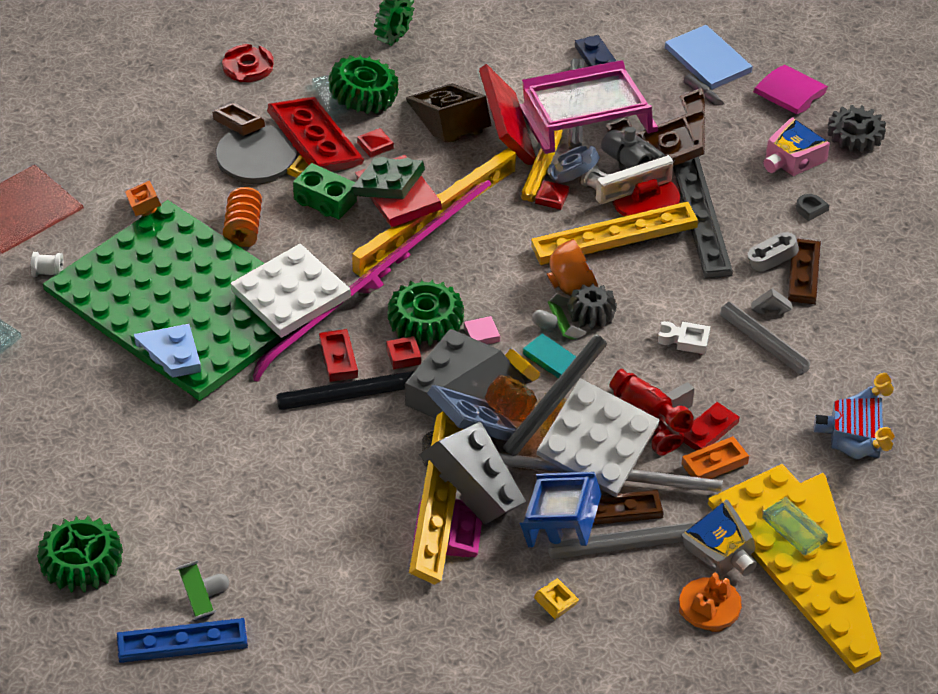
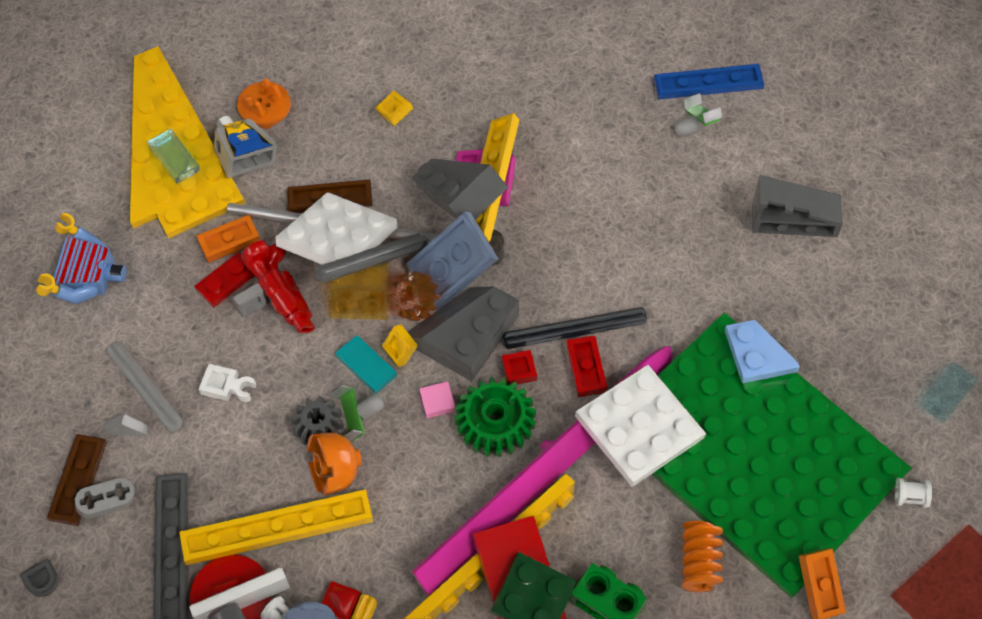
camera: 175 degrees left, 15 degrees up
(80, 553) = (806, 157): green gear -> none
(109, 483) = (795, 209): none -> dark grey wedge
(562, 503) = (380, 173): blue window -> none
(619, 541) = (327, 163): light grey axle -> none

